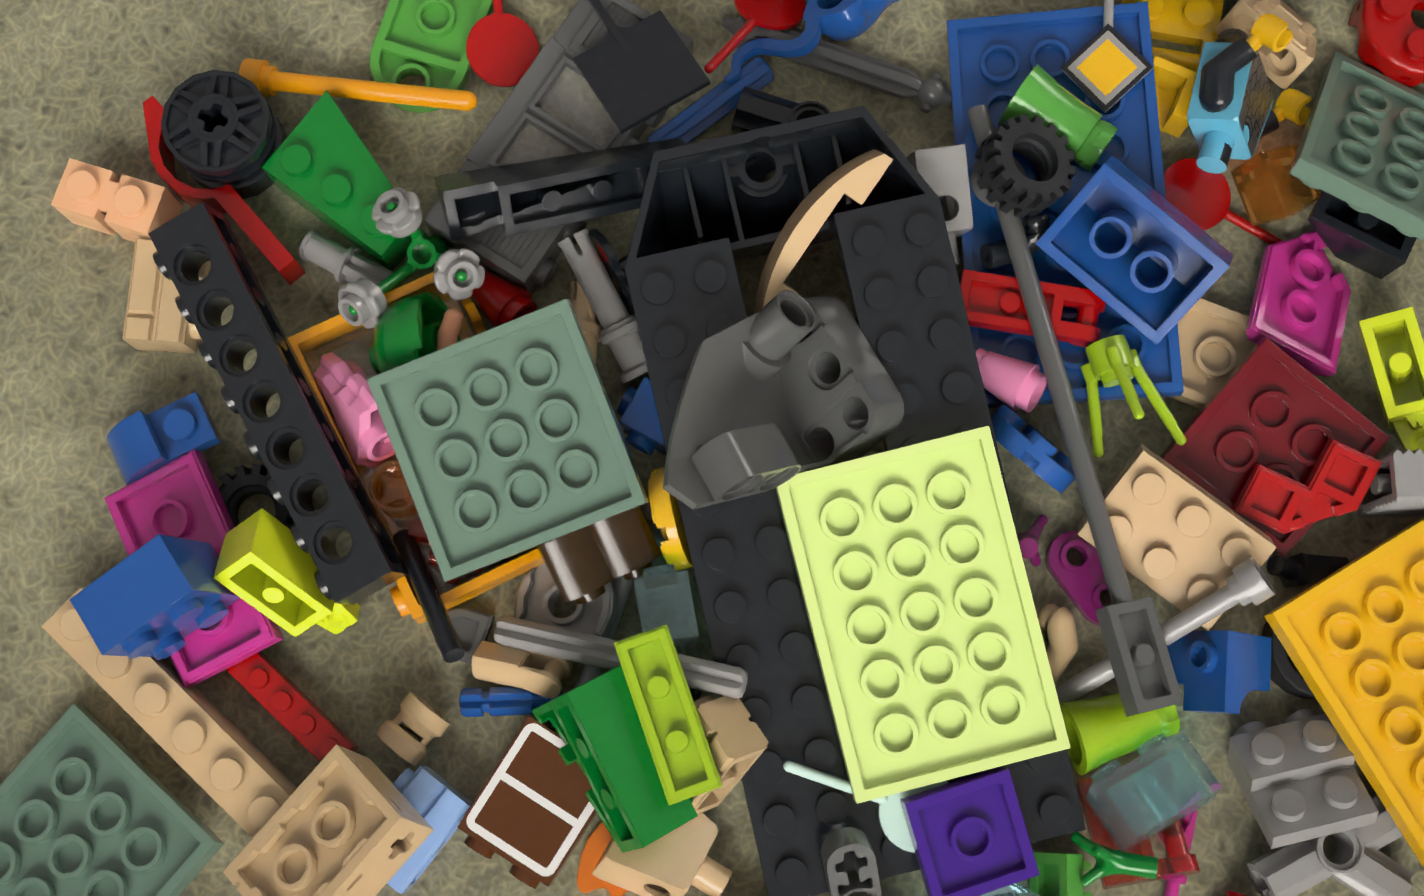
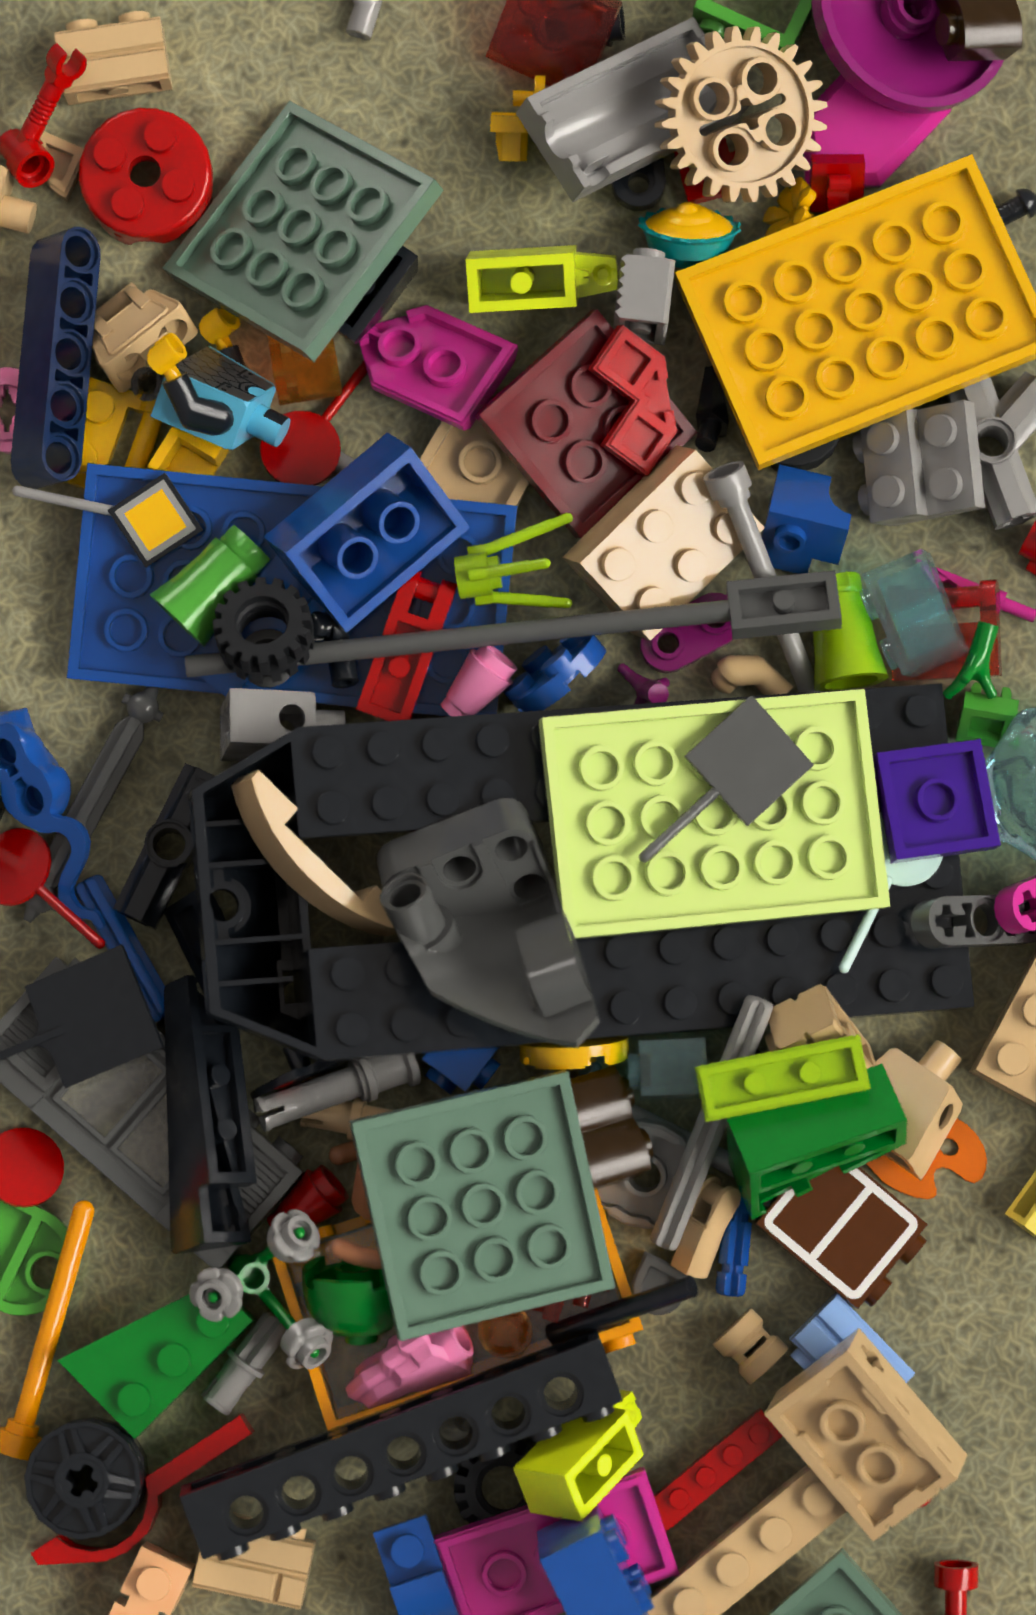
camera: 80 degrees left, 5 degrees up
(975, 636) = (745, 763): none -> dark grey piece

